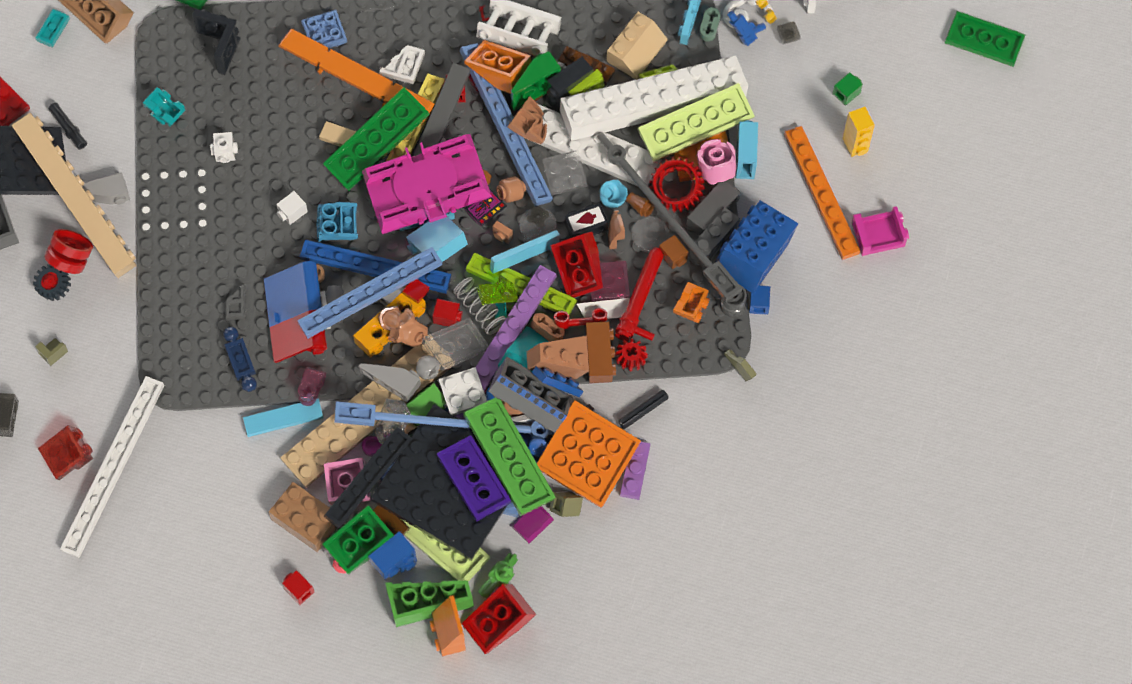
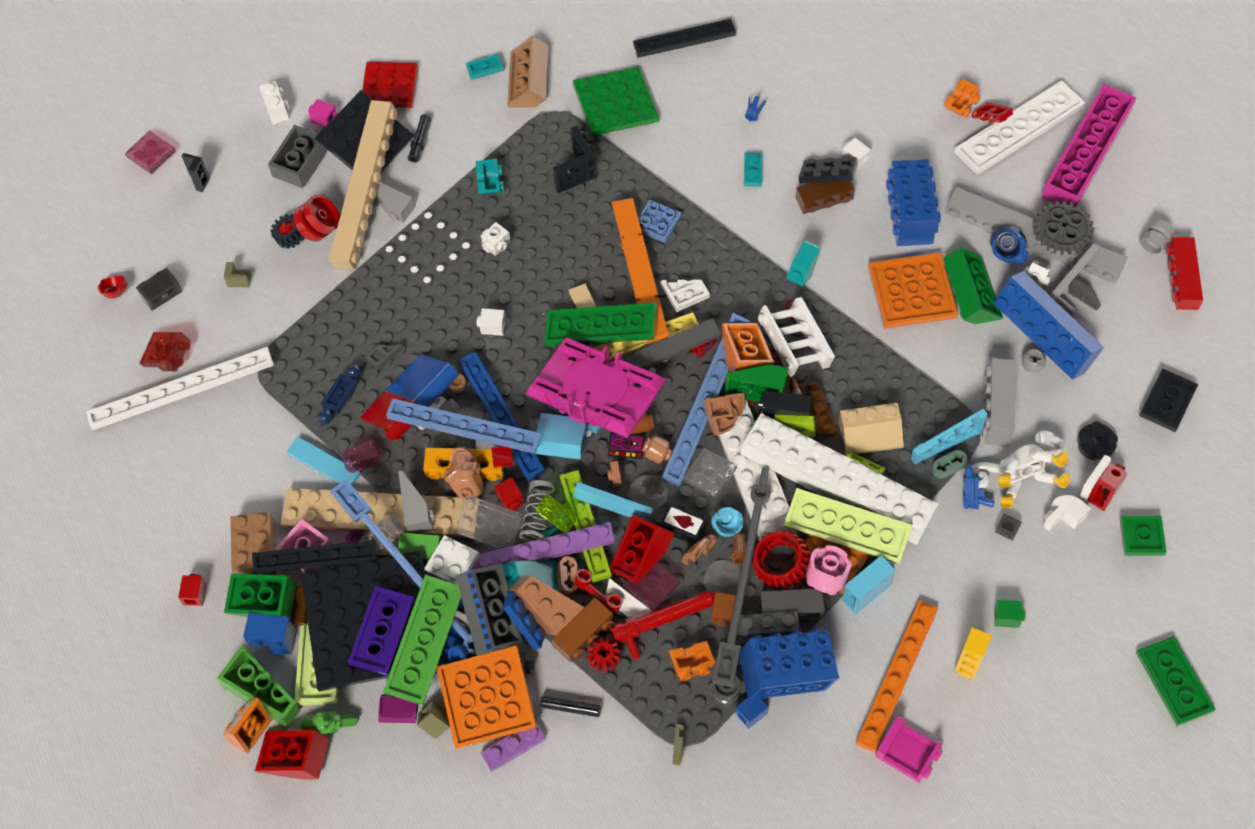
camera: 50 degrees right, 5 degrees down
(337, 221) = (511, 359): dark azure slope -> none
(427, 367) = (445, 519): light grey piece -> none

